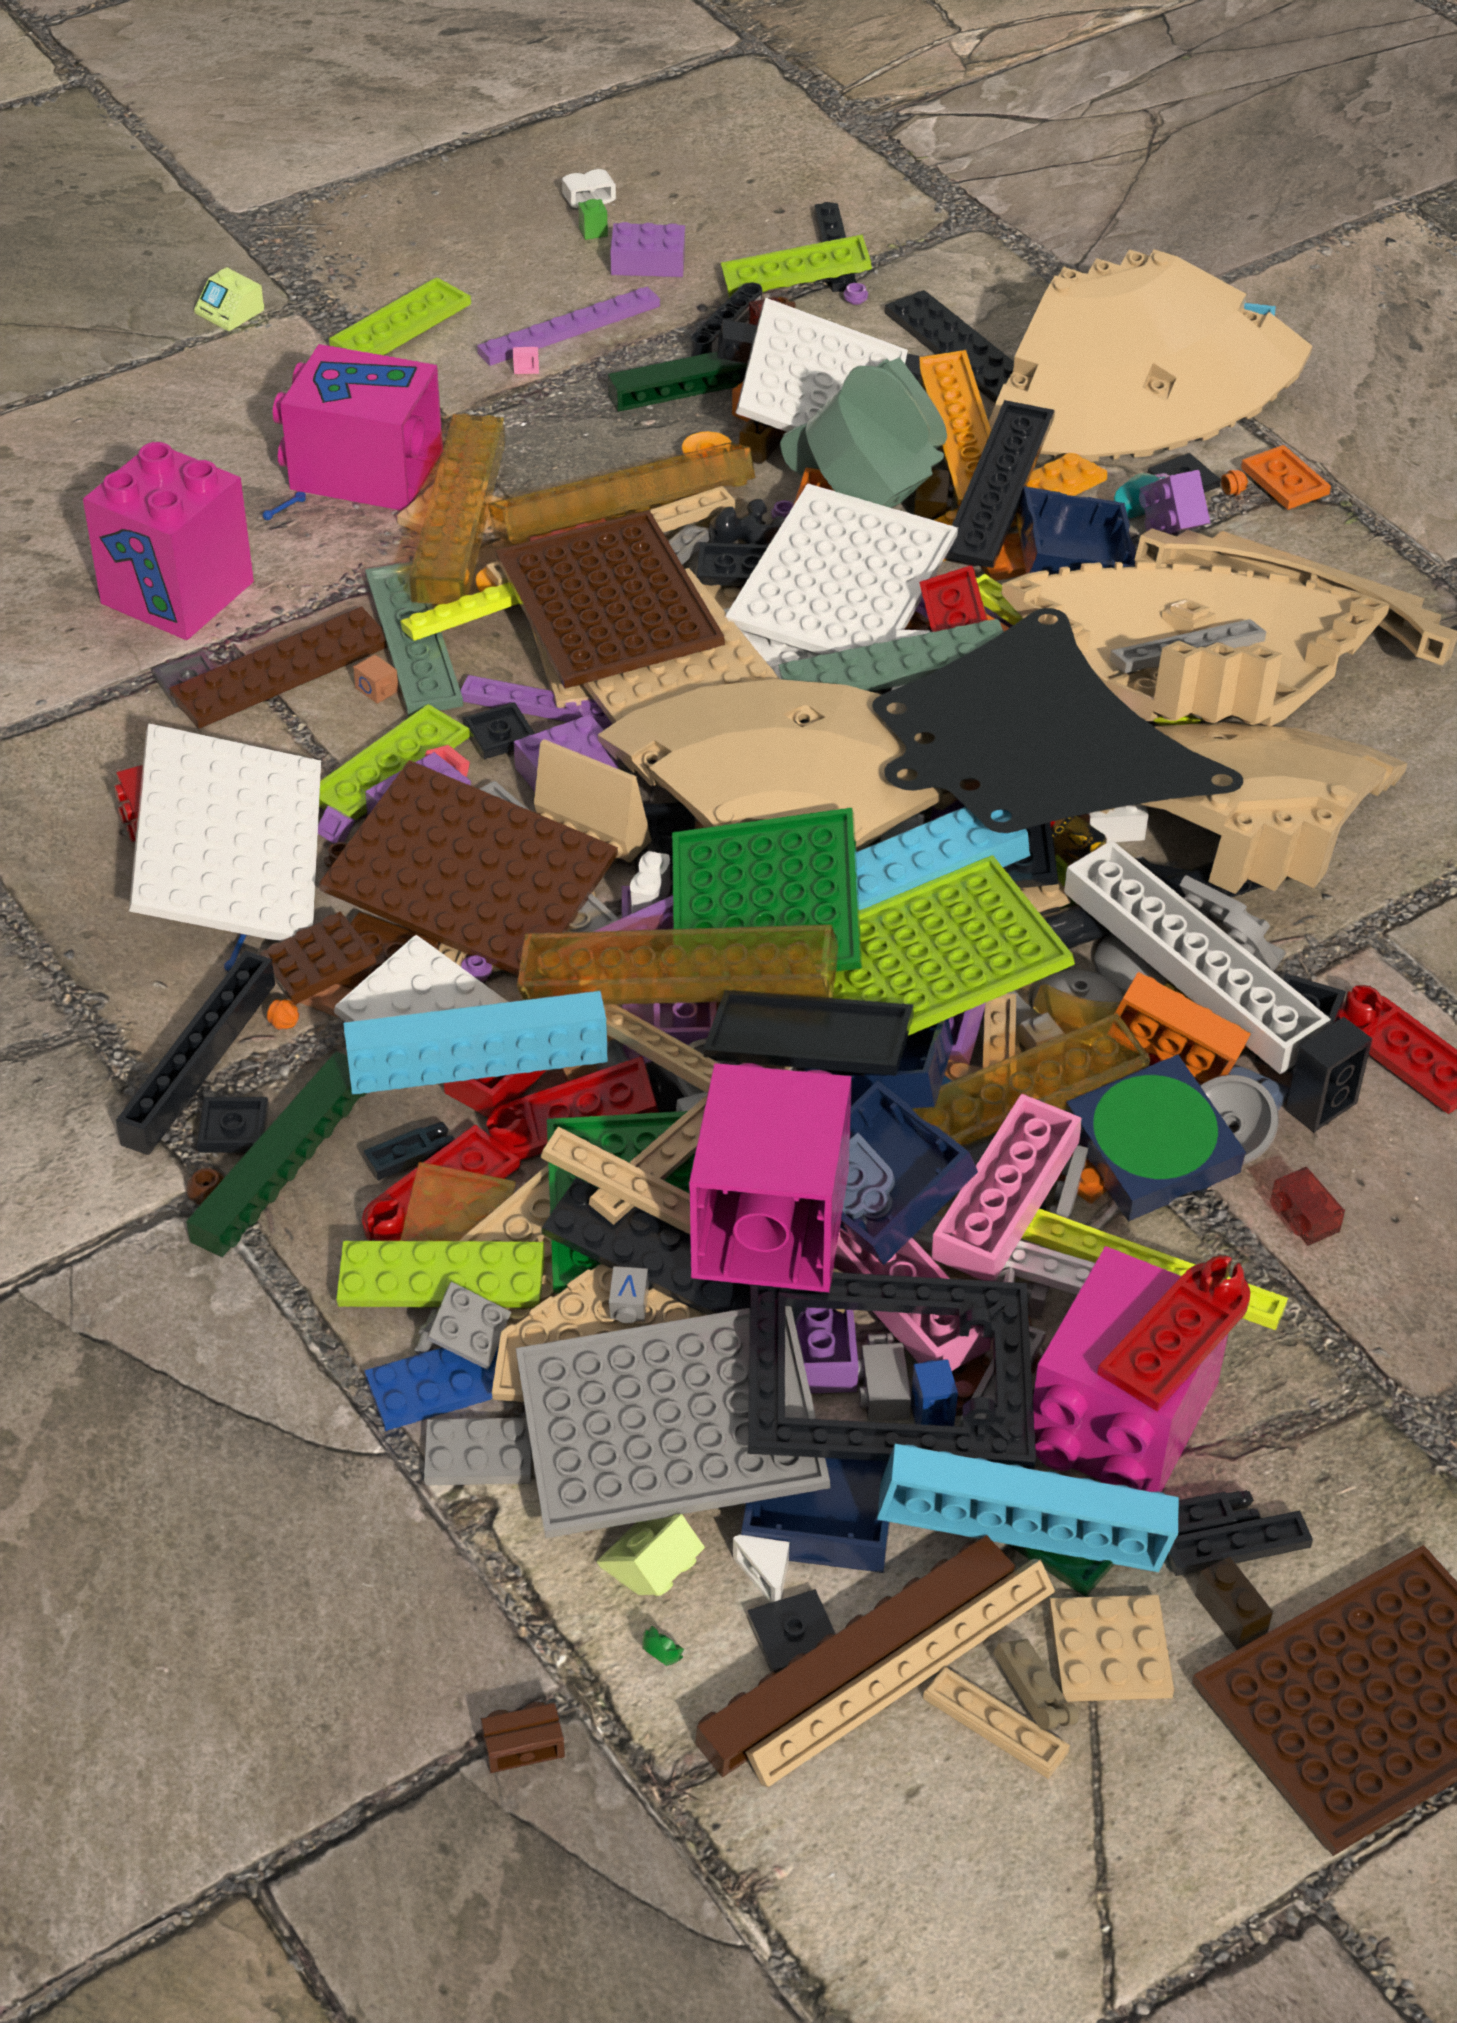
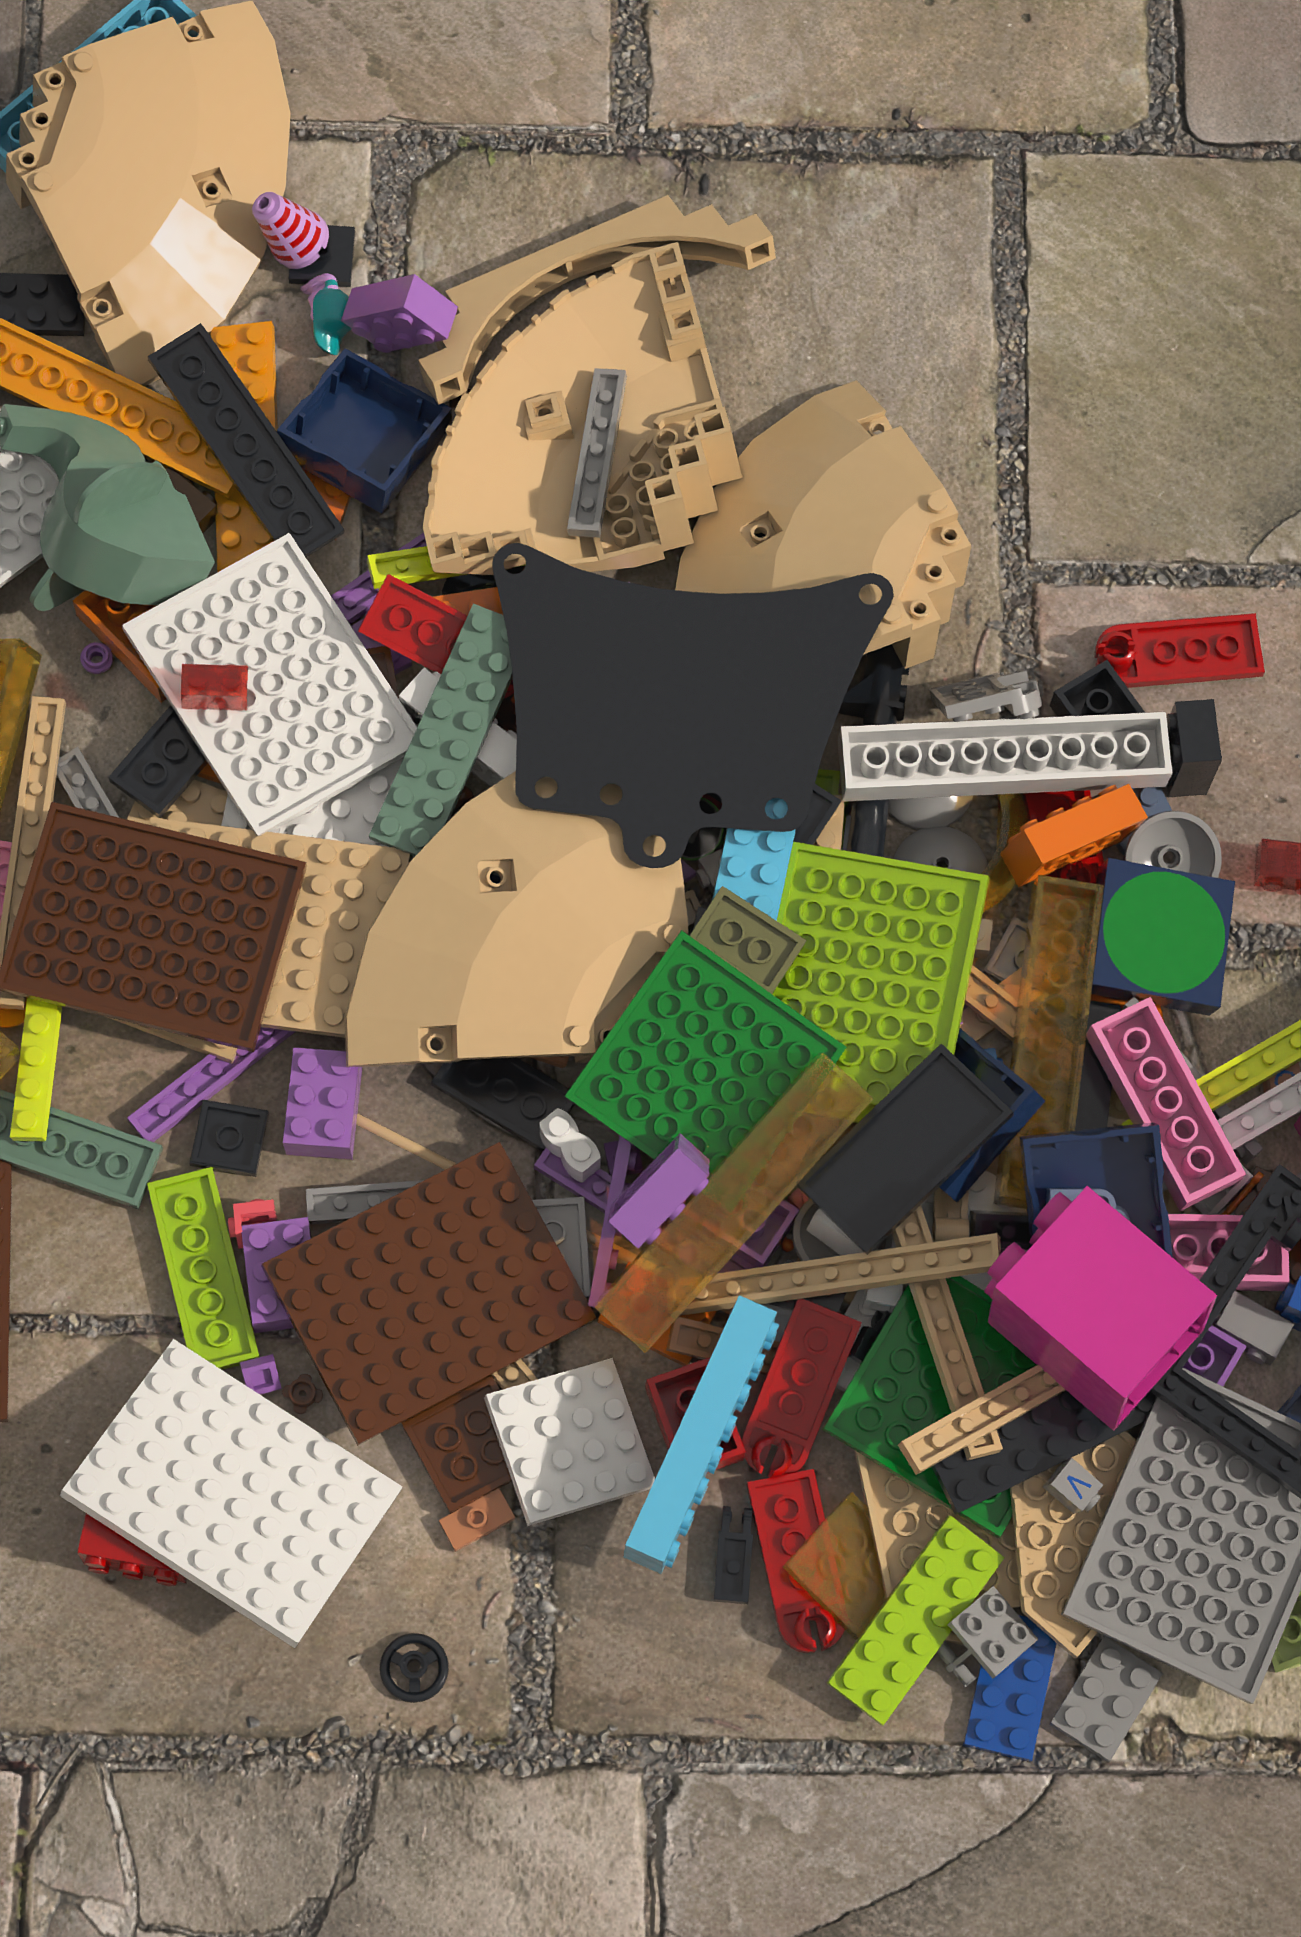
camera: 60 degrees left, 25 degrees up
(175, 1012) = (436, 1654): none -> black piece
(195, 1053) = (492, 1677): black brick -> none
(202, 1184) = (644, 1759): reddish brown plate -> none
(228, 964) = (378, 1580): blue hinge -> none
(231, 1123) = (597, 1694): black plate -> none
(274, 1159) = (665, 1673): dark green brick -> none
(283, 1014) = (487, 1569): orange plate -> none
(318, 957) = (443, 1498): reddish brown plate -> none
(376, 678) = (69, 1209): nougat brick -> none
(477, 967) = (544, 1369): medium lavender plate -> none
(591, 799) = (431, 1134): tan slope -> none
(645, 907) = (660, 1192): none -> medium lavender brick
(750, 528) = (93, 730): black animal -> none
(805, 535) = (214, 687): none -> clear red brick
(885, 860) = (748, 939): none -> olive plate
(1176, 433) = (290, 230): none -> lavender cone
(1234, 482) = (369, 219): orange plate -> none
(1285, 477) = (395, 167): orange plate -> none

